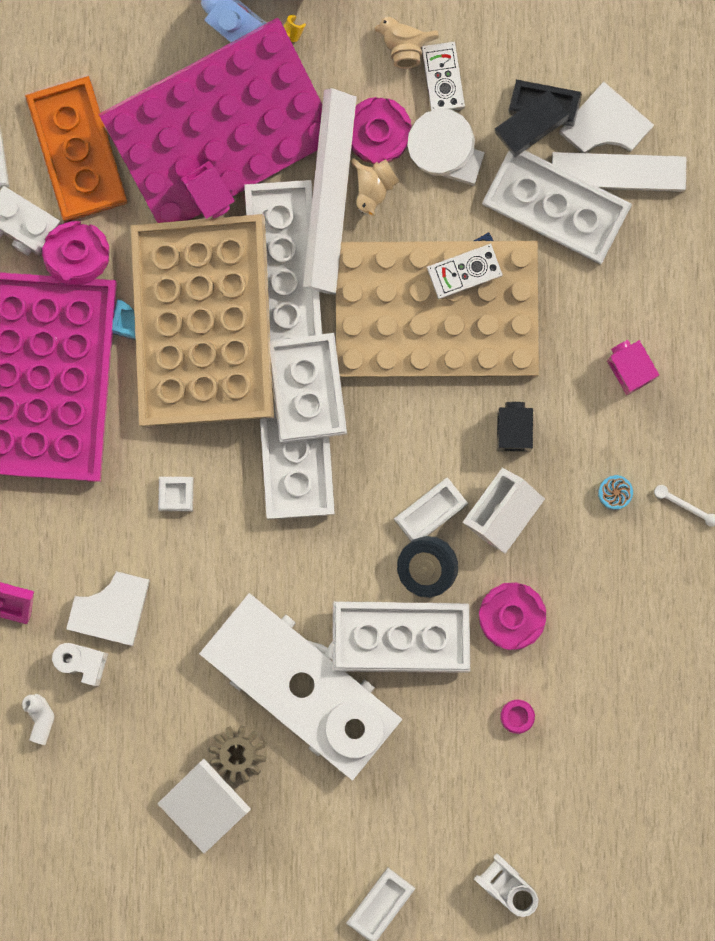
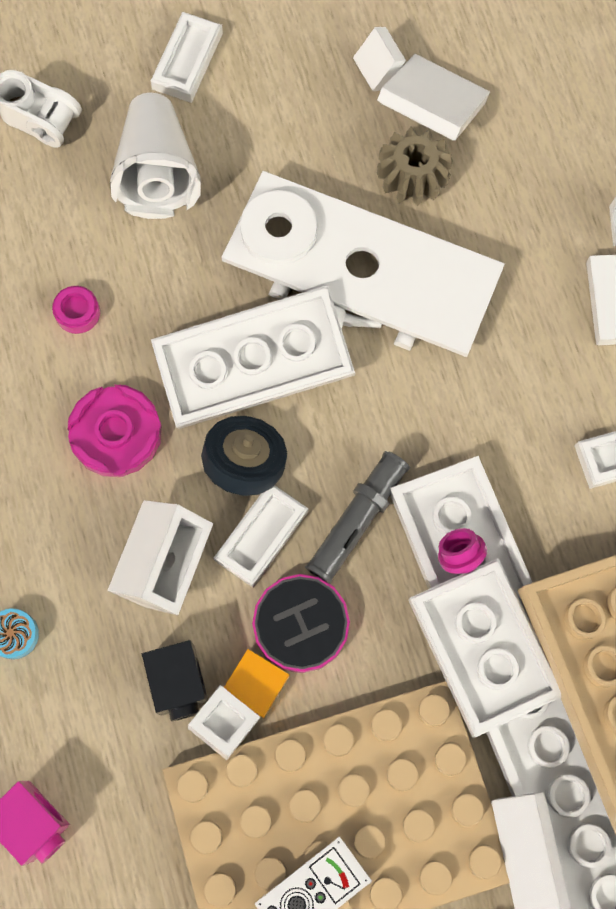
camera: 160 degrees right, 10 degrees down
(234, 853) = (379, 58): none -> white tile
(303, 452) = (461, 551): none -> dark pink plate
(350, 511) = (357, 517): none -> dark grey pin
(421, 442) = (301, 623): none -> black tile
(429, 817) = (154, 161): none -> white cone
(463, 412) = (256, 682): none -> light orange tile
(491, 390) = (223, 722): none -> white tile

